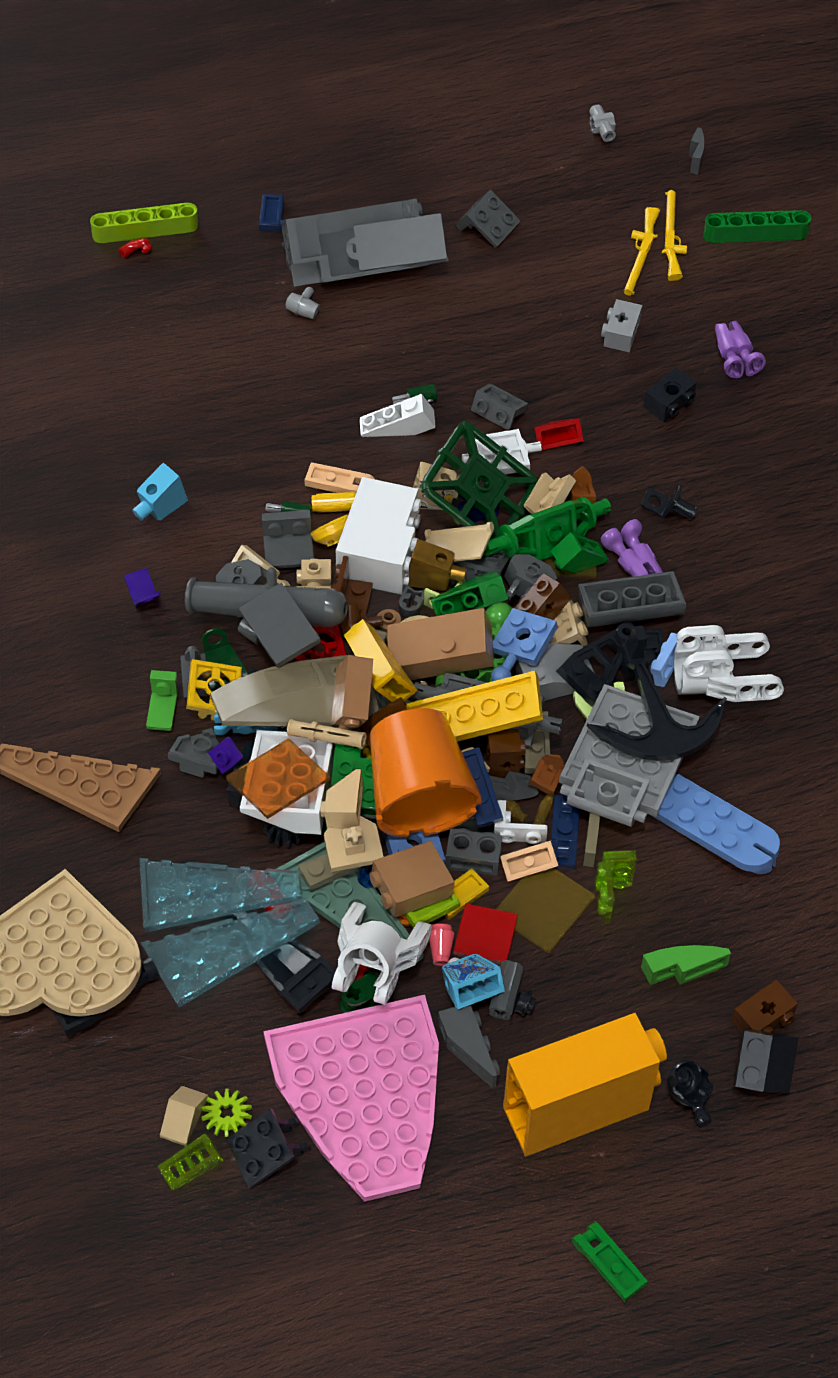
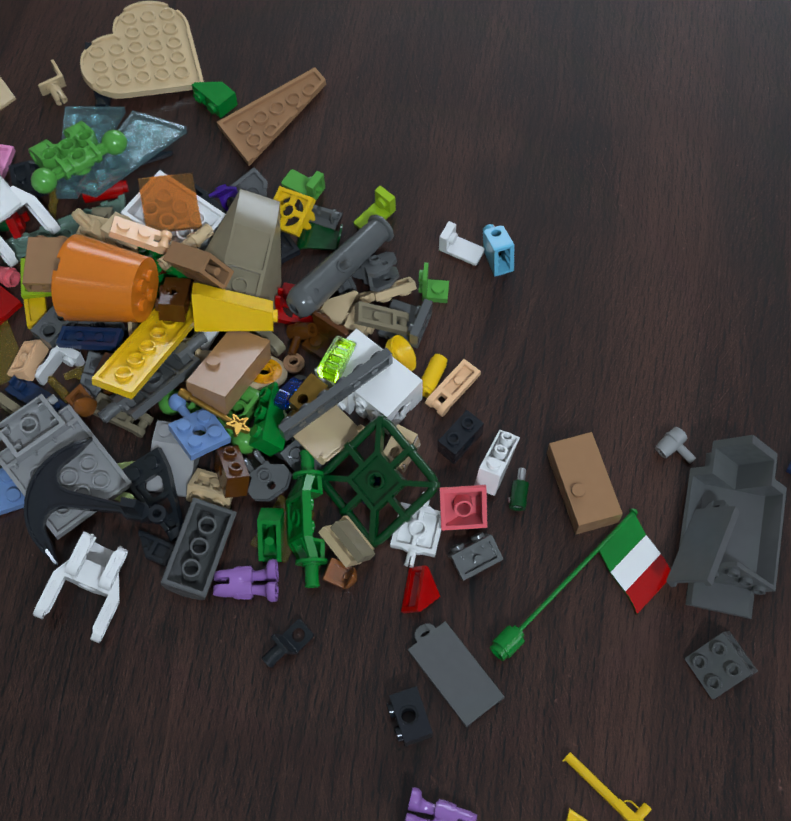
camera: 120 degrees right, 10 degrees up
(80, 845) = (215, 96): none -> green slope
(141, 587) = (415, 209): dark purple bracket -> none
(146, 1040) = (54, 86): none -> tan bracket
(165, 623) = (383, 206): none -> lime bracket
(171, 533) = (459, 247): none -> white bracket
(235, 534) = (432, 289): none -> bright green bracket
(270, 956) = (72, 155): none -> bright green connector
(279, 625) = (299, 253): dark grey tile -> none
(288, 506) = (439, 339): dark green piece -> none
(306, 547) = (381, 318): none -> dark tan plate
(317, 939) = (53, 204): none -> clear yellow piece
(342, 770) = (140, 235): none -> light nougat plate
(382, 350) = (584, 483): none -> medium nougat brick
(388, 538) = (329, 370): none -> clear neon green slope
(391, 452) = (460, 437): none -> black brick
(423, 527) = (329, 398): none -> dark grey plate
(437, 581) = (284, 394): none -> clear blue beam
(438, 298) = (631, 562): none -> flag
(459, 408) = (463, 507): none -> coral slope
(496, 613) = (233, 423): none -> pearl gold piece
(548, 483) = (352, 540): none -> dark tan tile
(610, 385) = (454, 672): none -> dark grey piece
(622, 325) = (506, 717): light grey brick -> none
(663, 665) = (136, 557): light blue plate -> none

